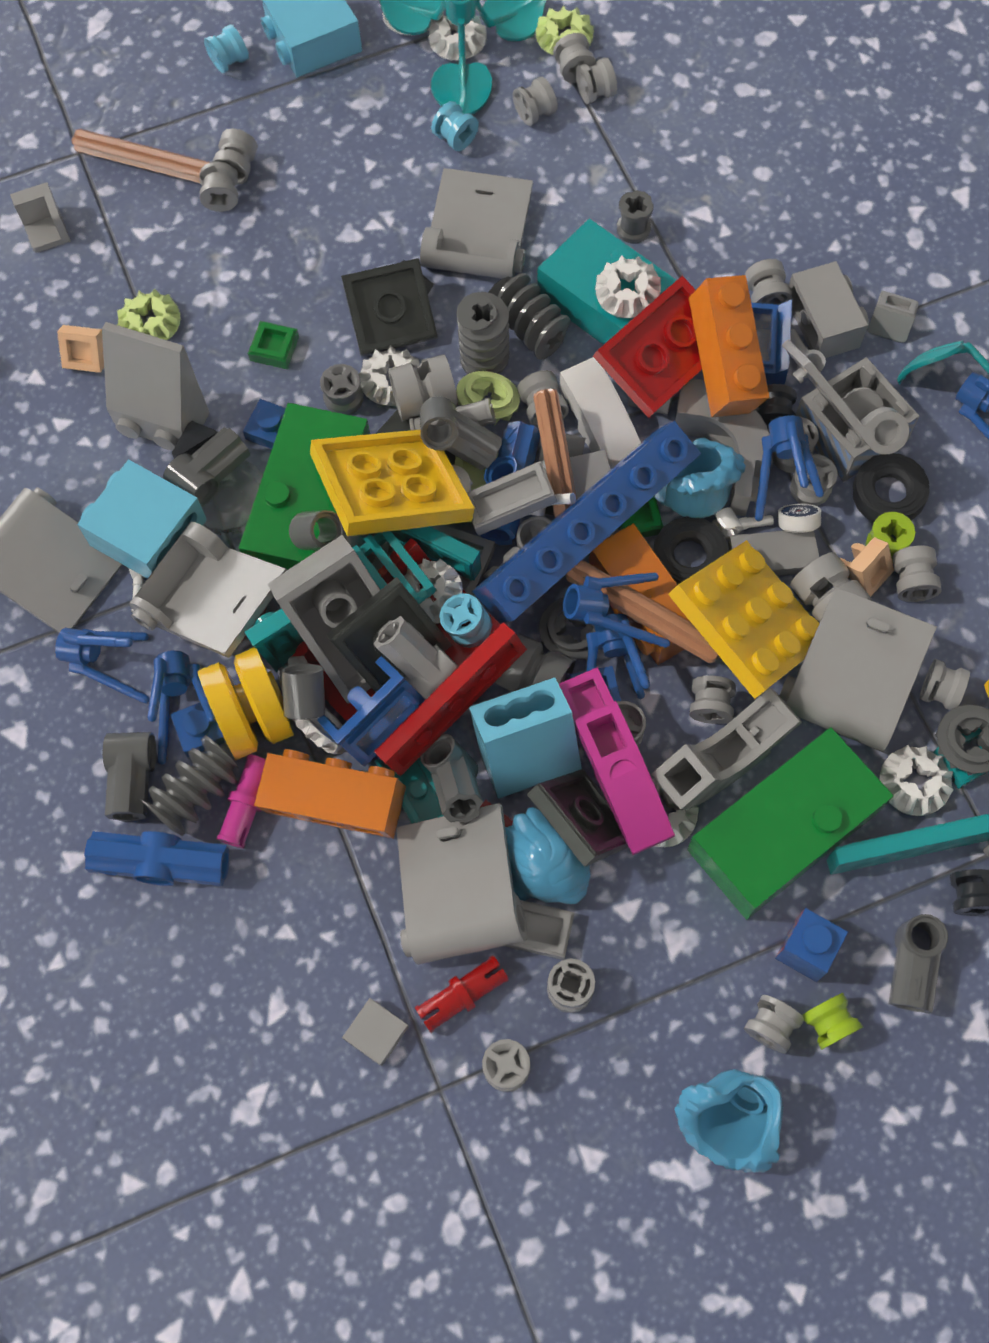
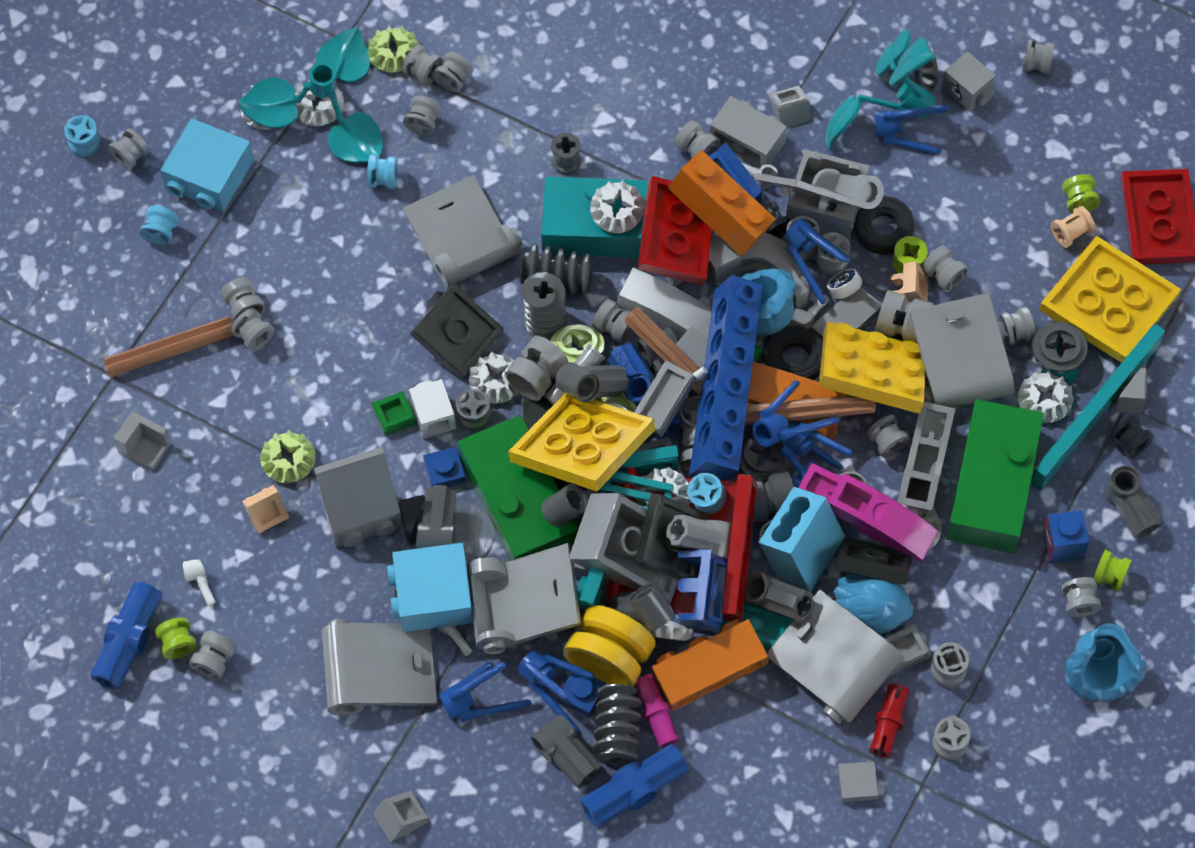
camera: 40 degrees left, 5 degrees down
(304, 361) = (432, 408): none -> white brick

